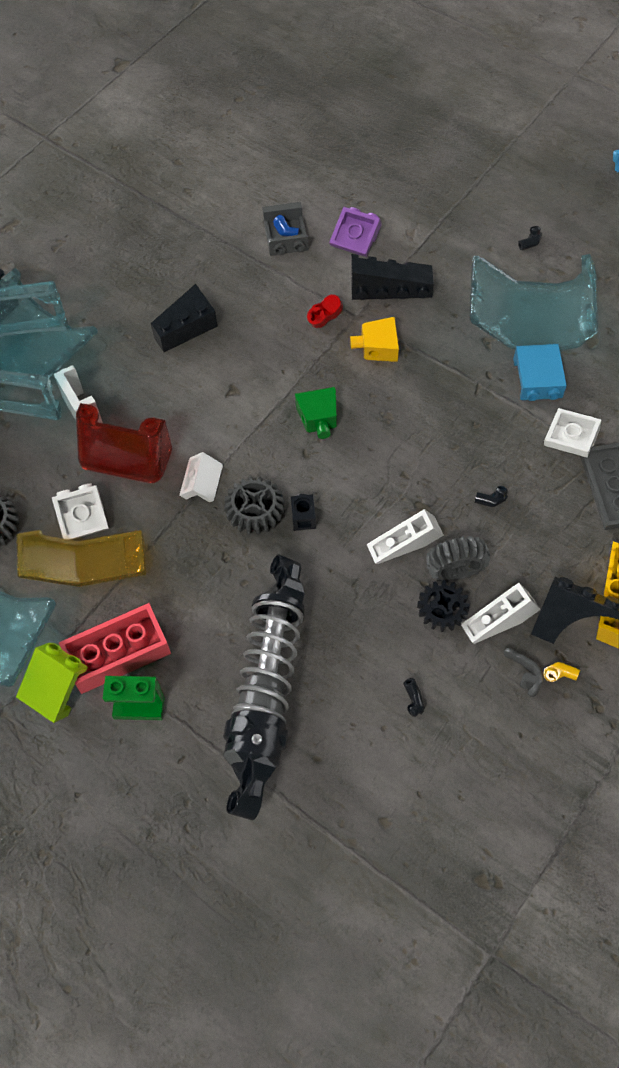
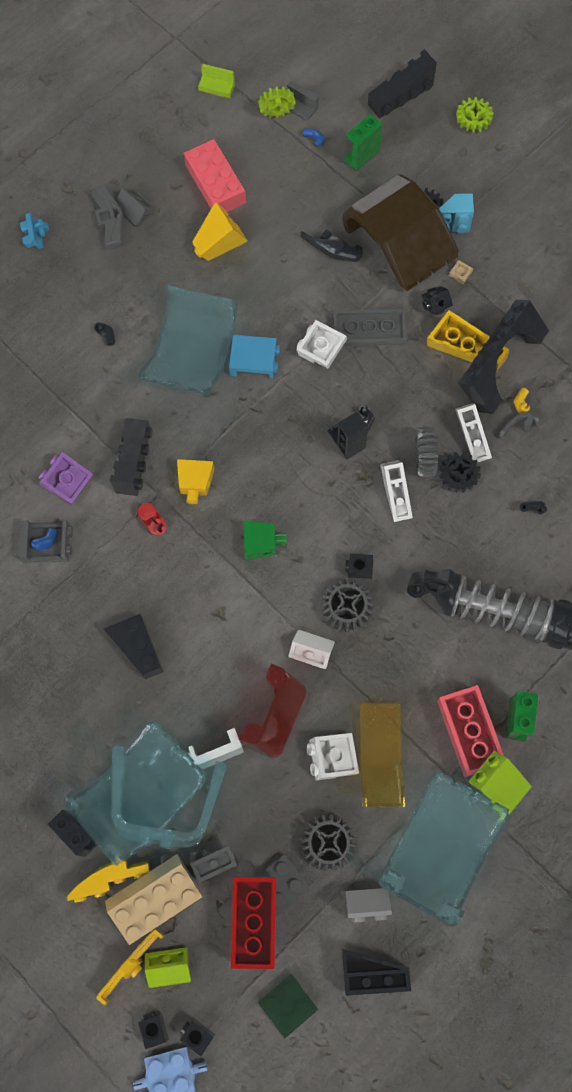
camera: 80 degrees left, 10 degrees up
(459, 472) = (350, 434): none -> black wedge

